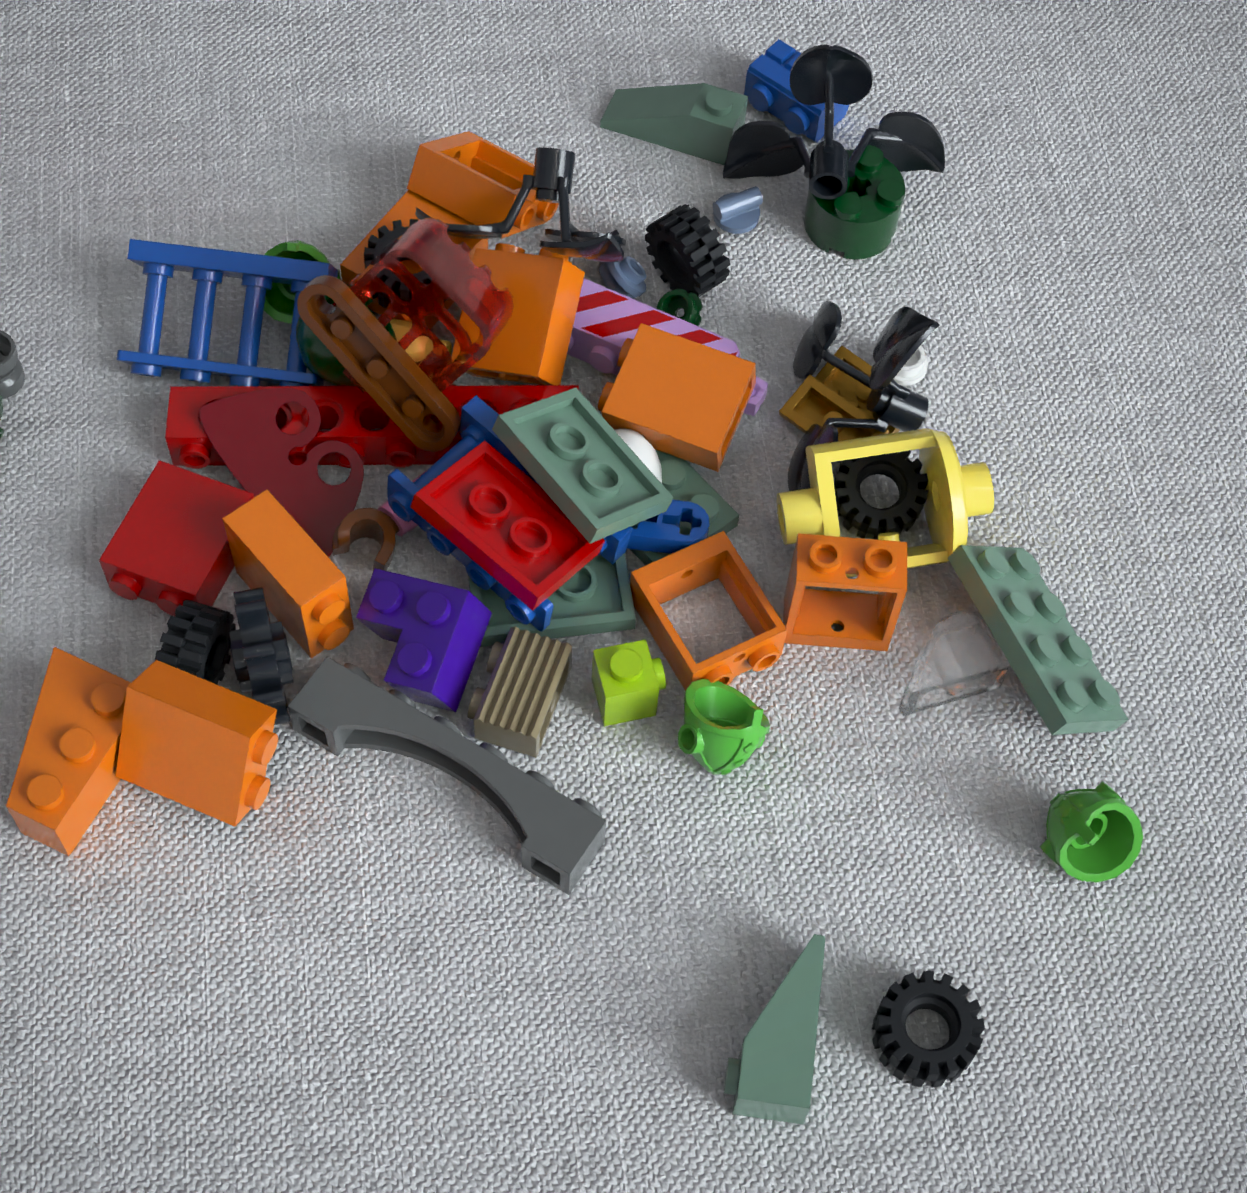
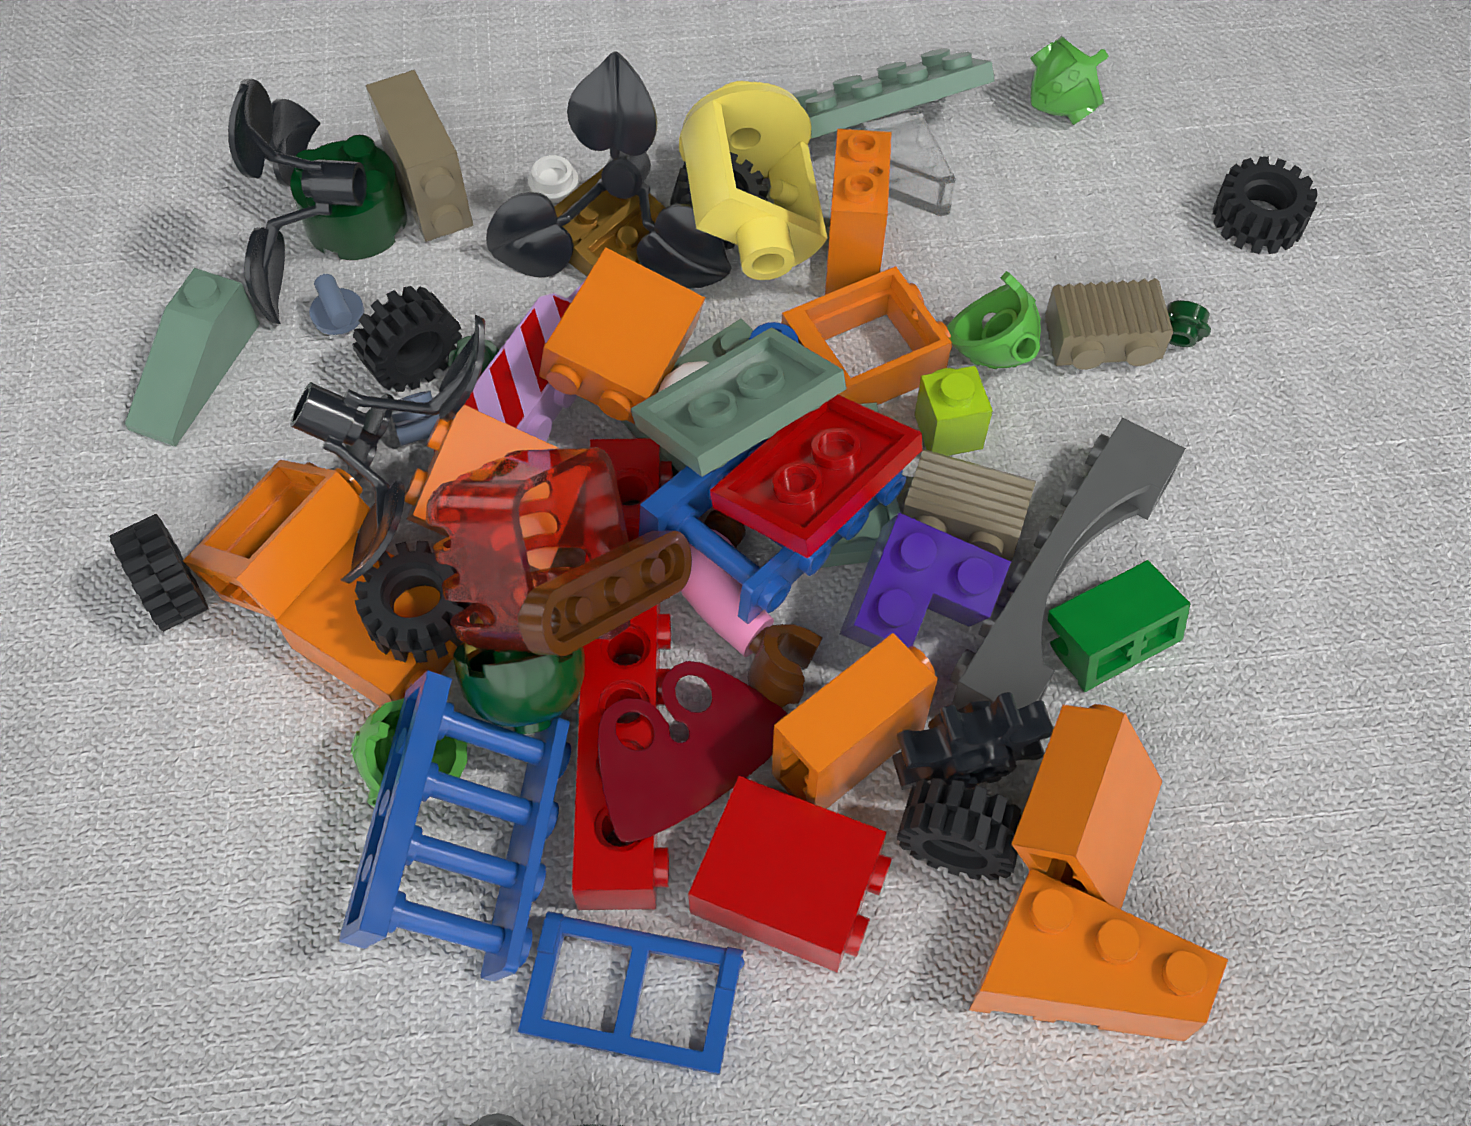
camera: 85 degrees left, 0 degrees up
(73, 440) = (621, 1041): none -> blue window
(393, 809) = (1118, 624): none -> green hinge
(457, 108) = (158, 572): none -> black tyre
(743, 839) = (1108, 323): none -> dark tan brick
(752, 919) = (1188, 323): none -> dark green plate
(770, 91) = (172, 241): blue brick -> none
(778, 1053) = (1298, 301): sand green slope -> none
(897, 242) = (421, 155): none -> dark tan brick

